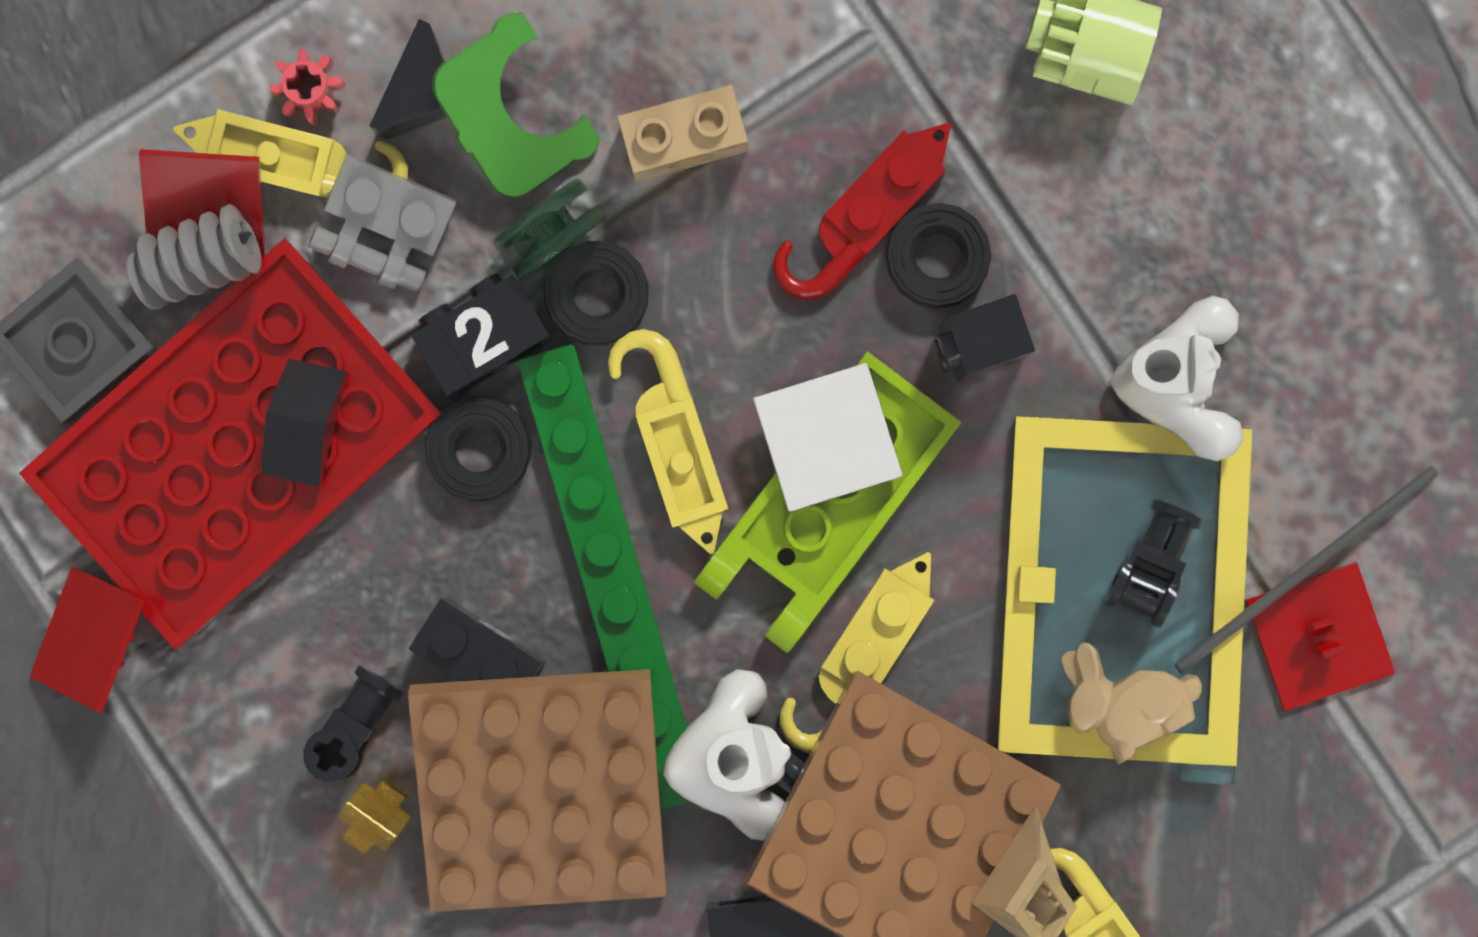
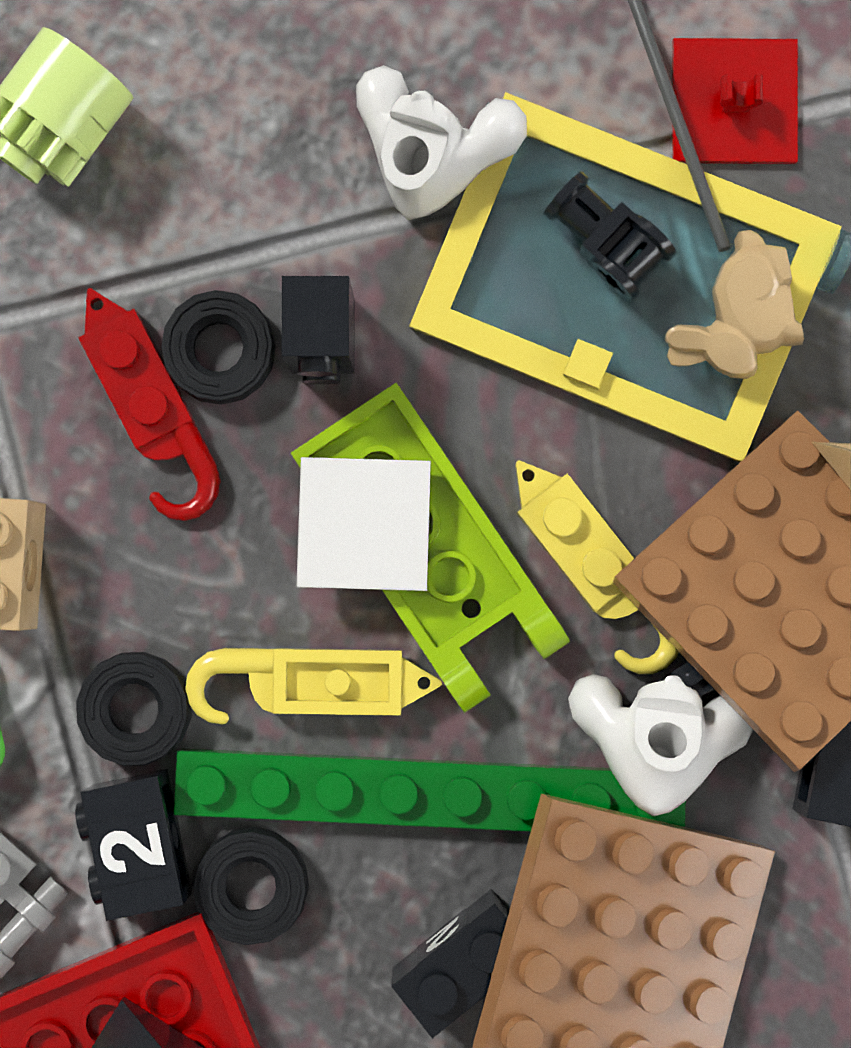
camera: 70 degrees left, 0 degrees up
(548, 230) = (48, 739): clear green head -> none

